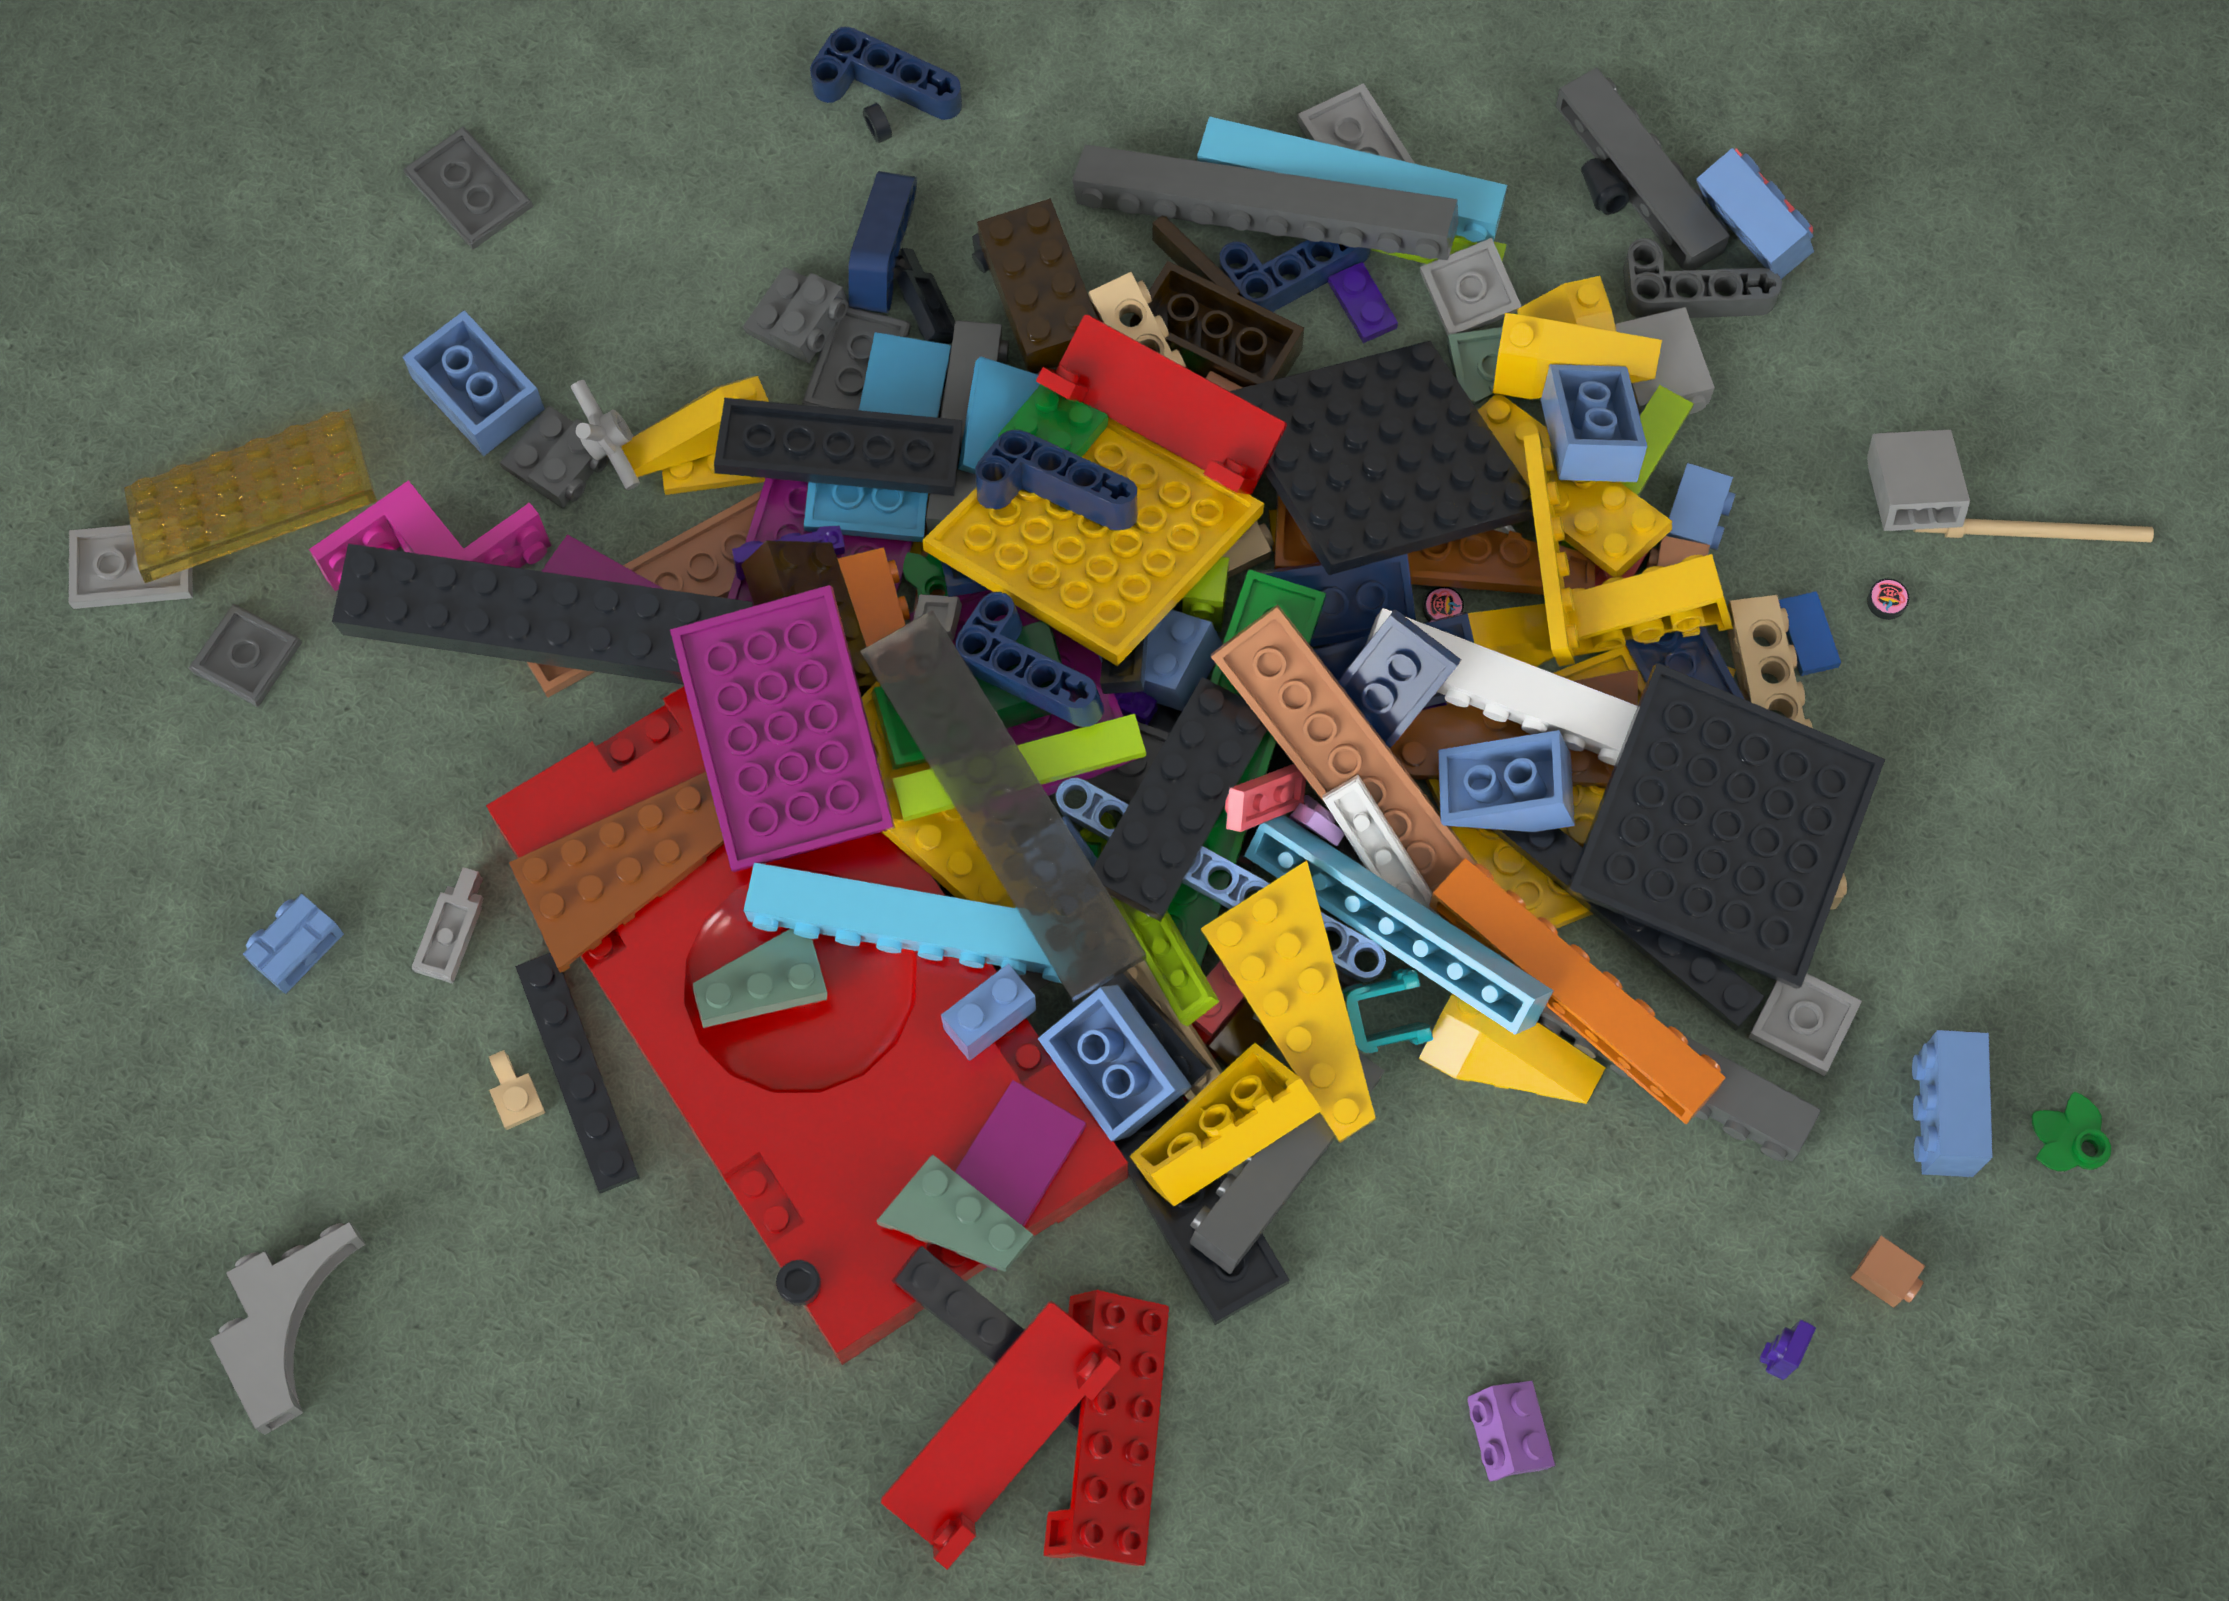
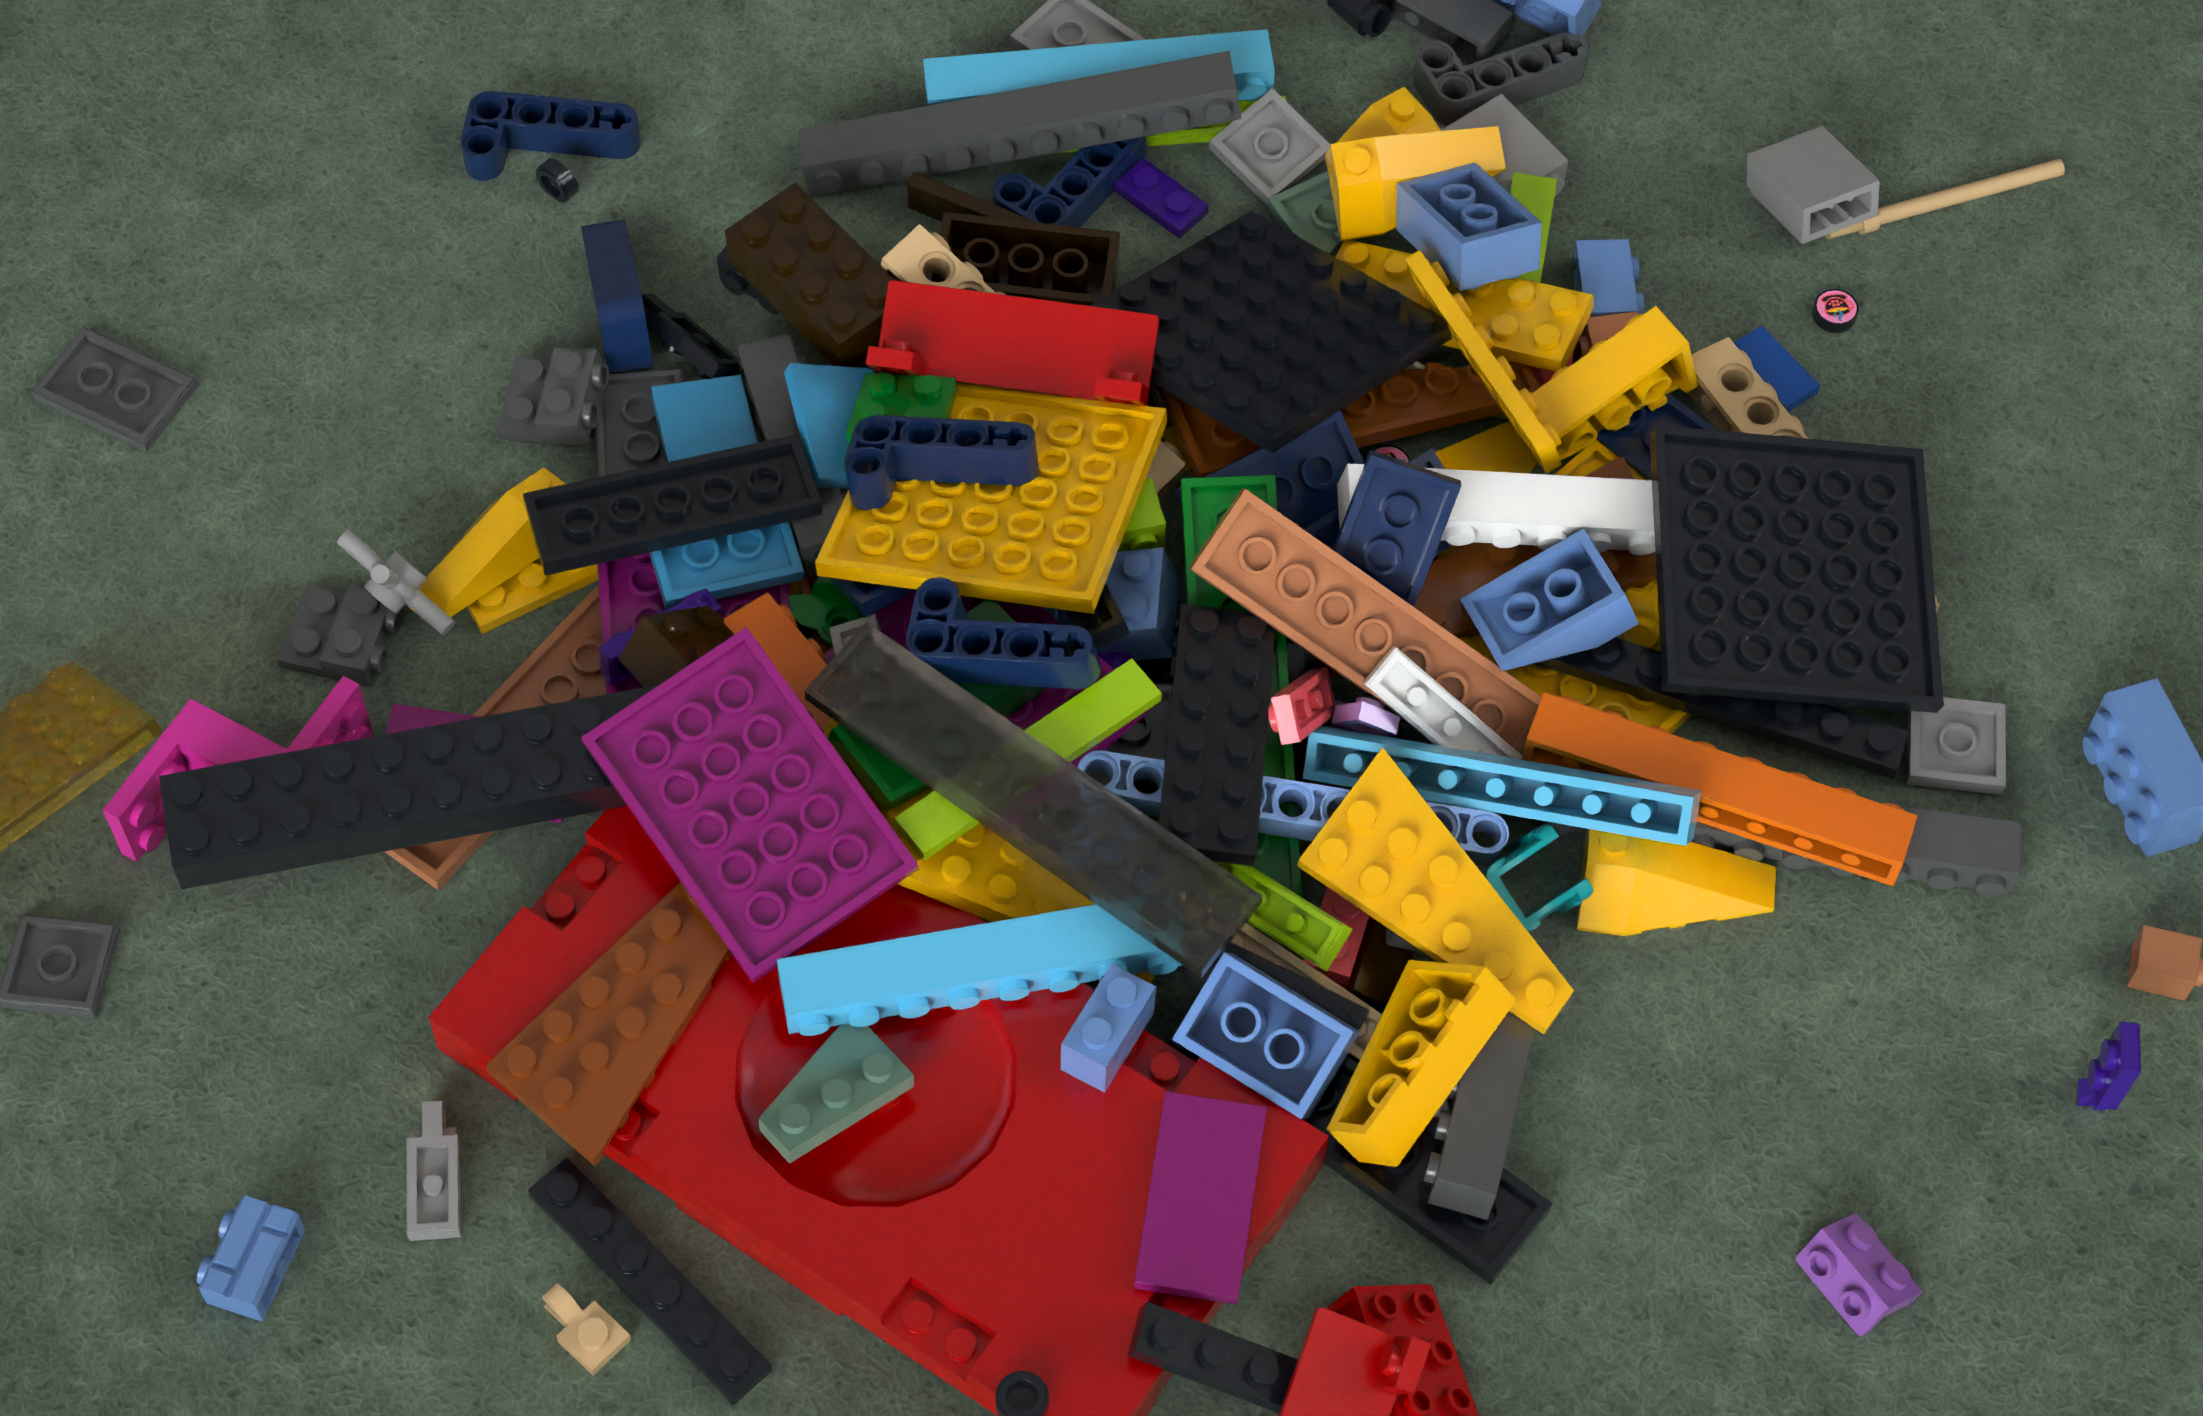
camera: 25 degrees left, 10 degrees down
(474, 383) = (213, 583): medium blue brick -> none
(953, 1214) = (1171, 1255): sand green wing -> none

